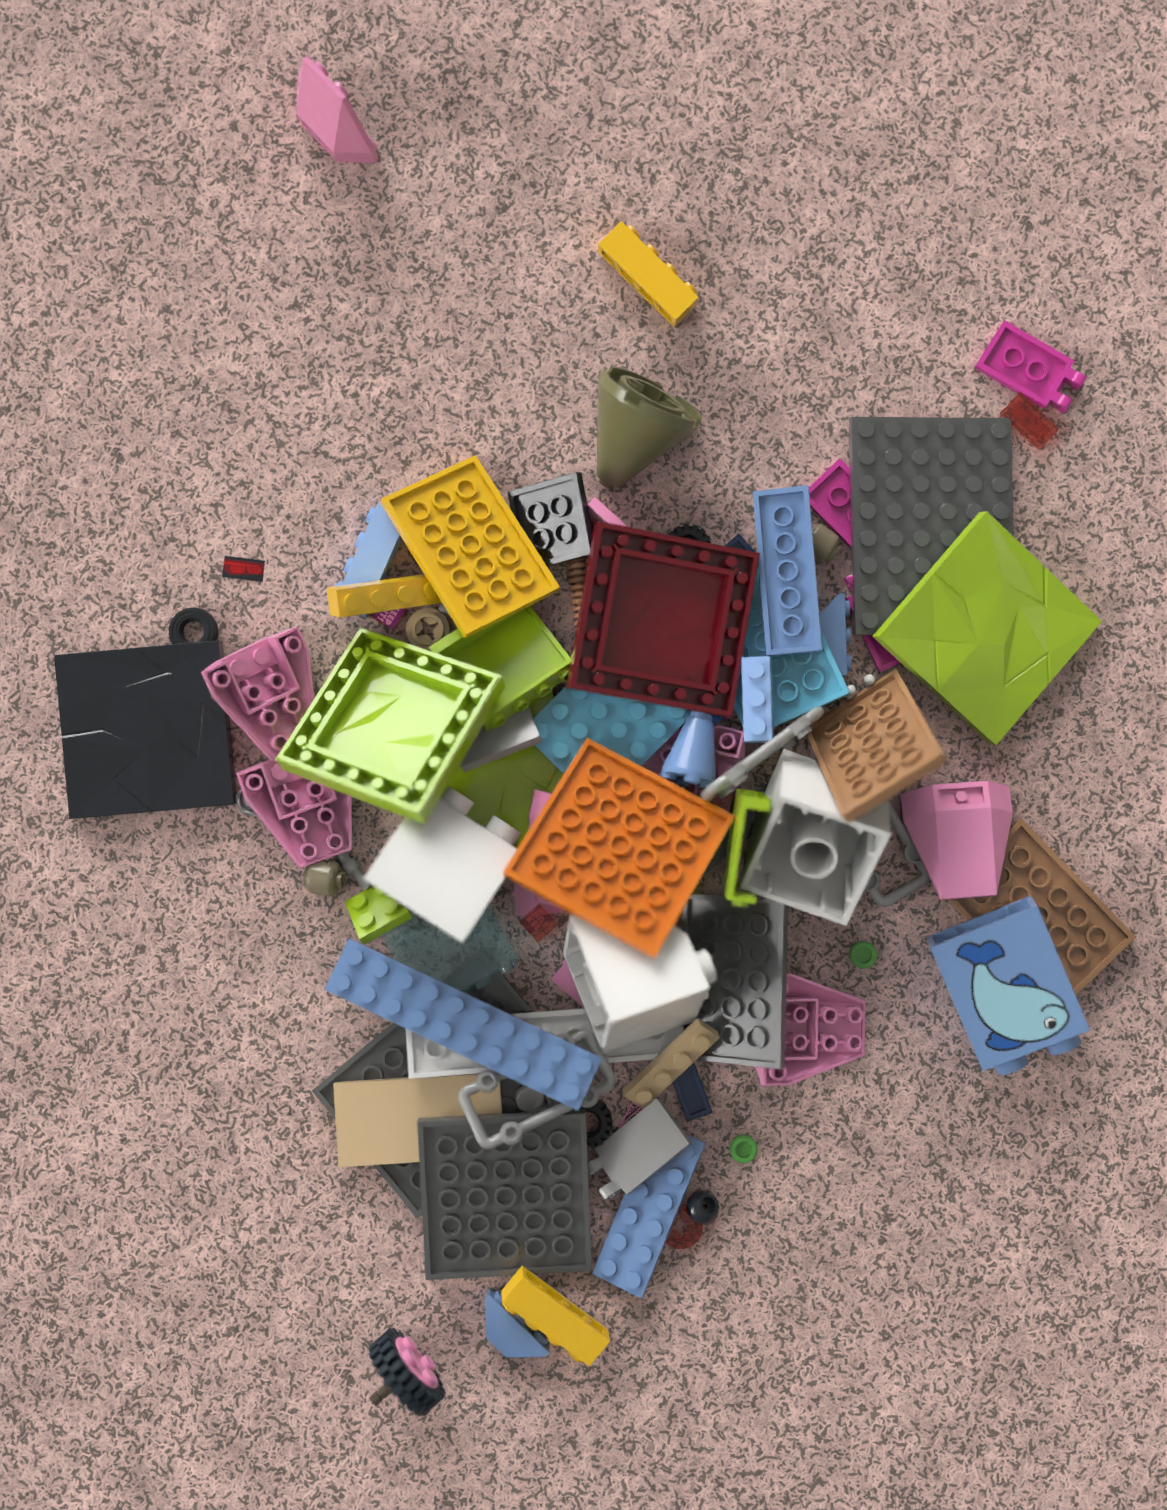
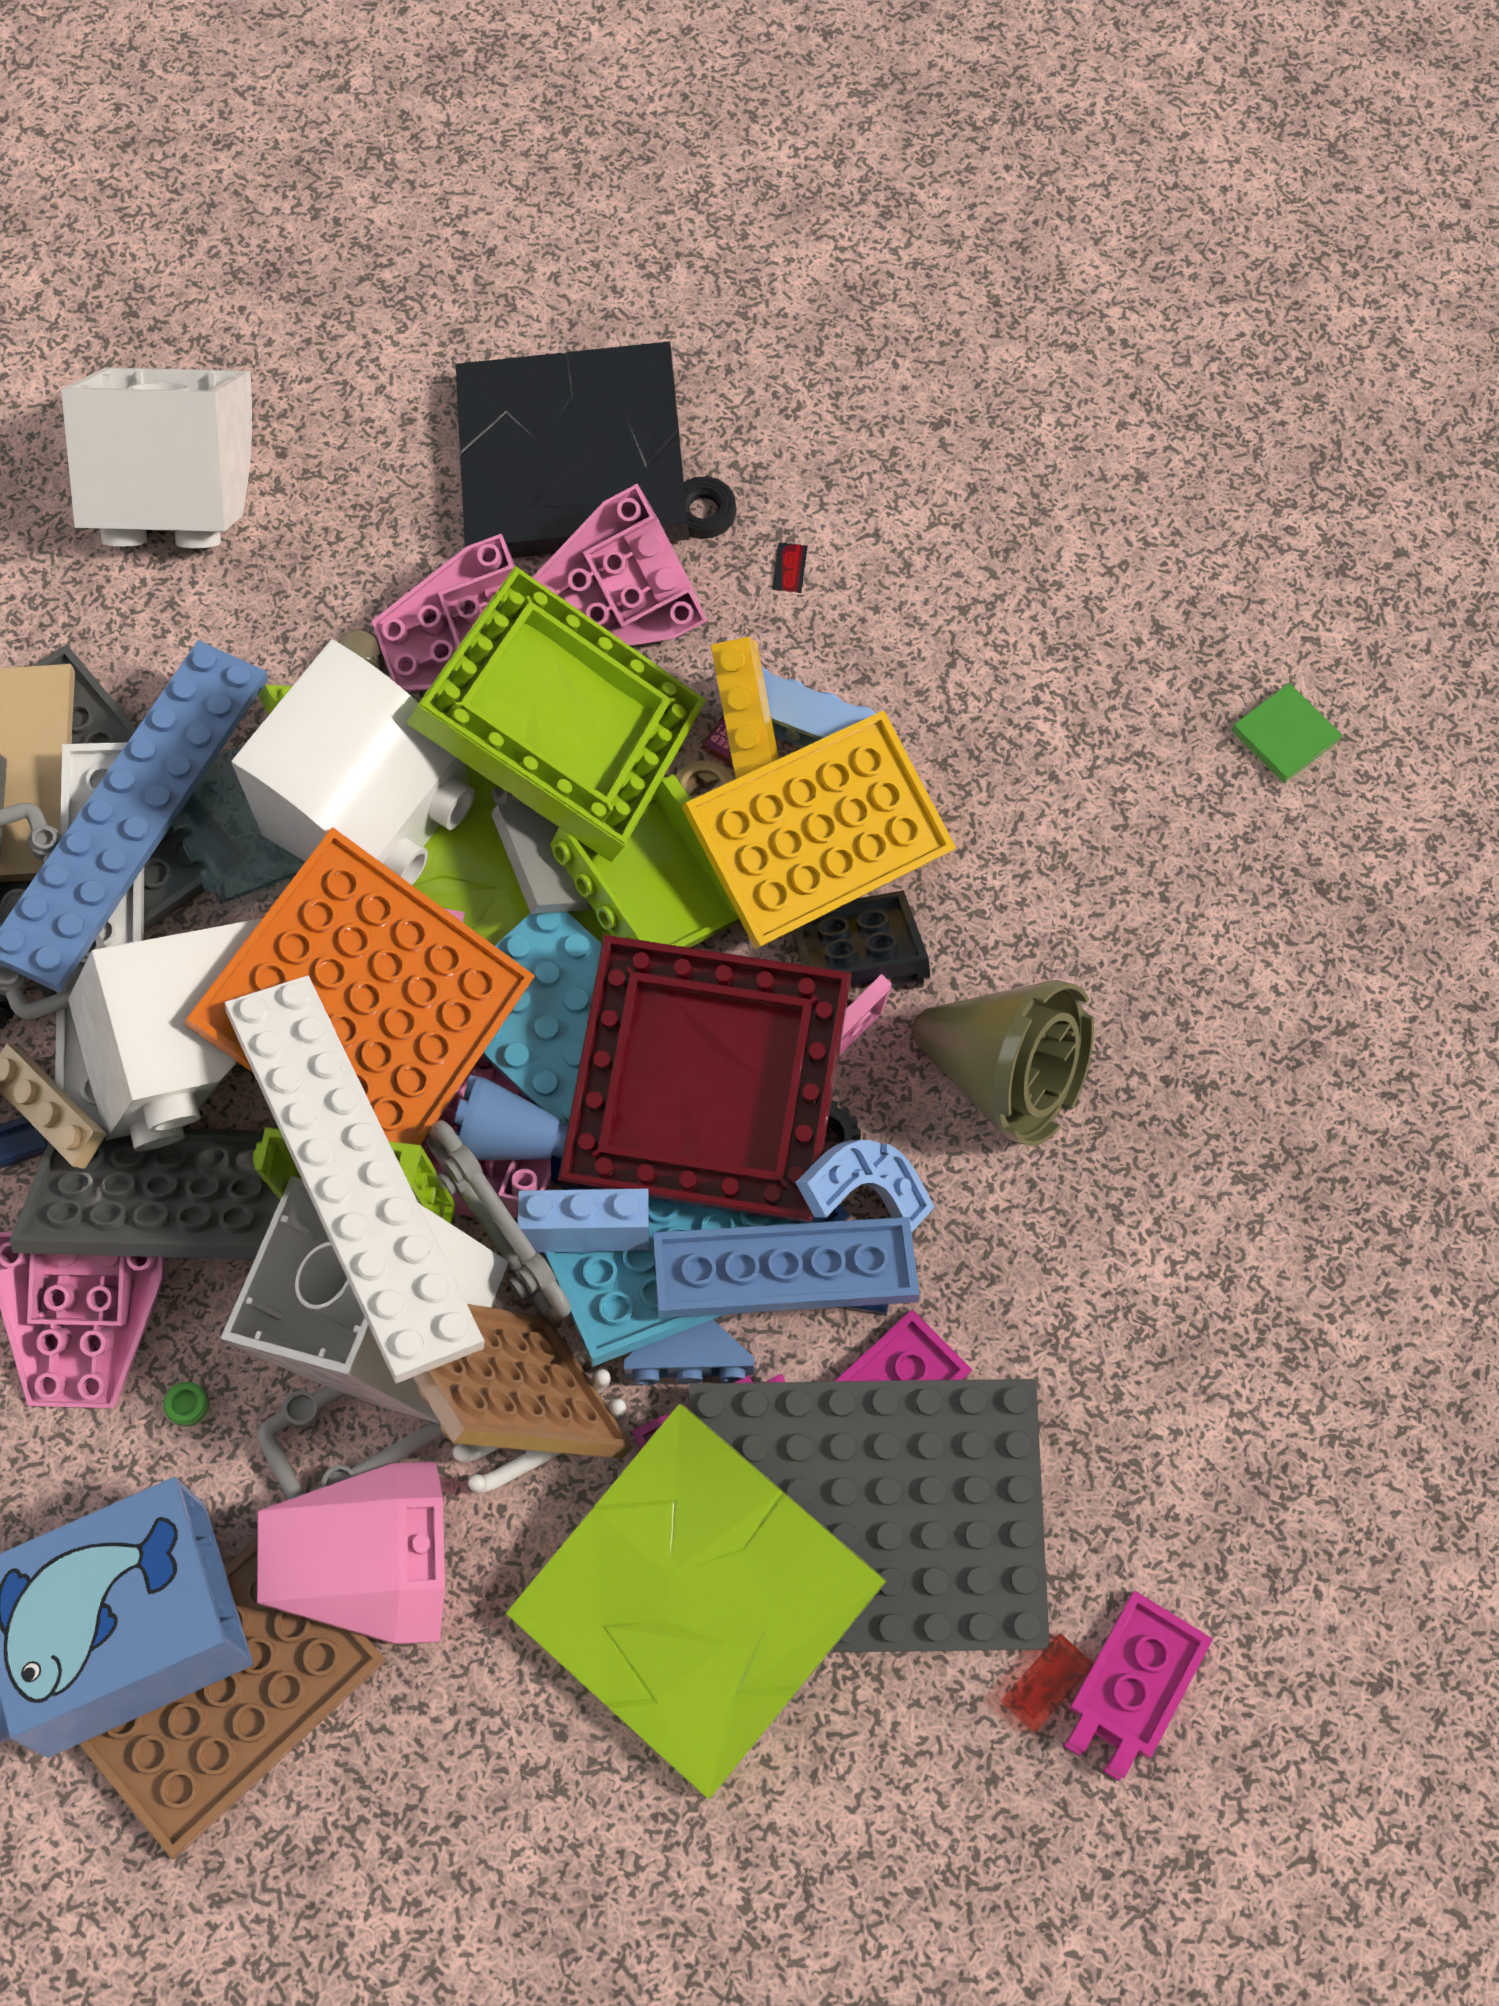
camera: 90 degrees right, 20 degrees down
(153, 1034) = (159, 452): none -> white brick
(330, 116) = (1436, 634): bright pink wedge -> none
(383, 221) = (1286, 733): none -> bright green tile
(648, 273) = (1239, 1079): yellow brick -> none
(721, 523) = (871, 1164): none -> light blue plate
(765, 838) = (354, 1180): none -> white plate
(824, 544) = (834, 1336): dark tan head -> none

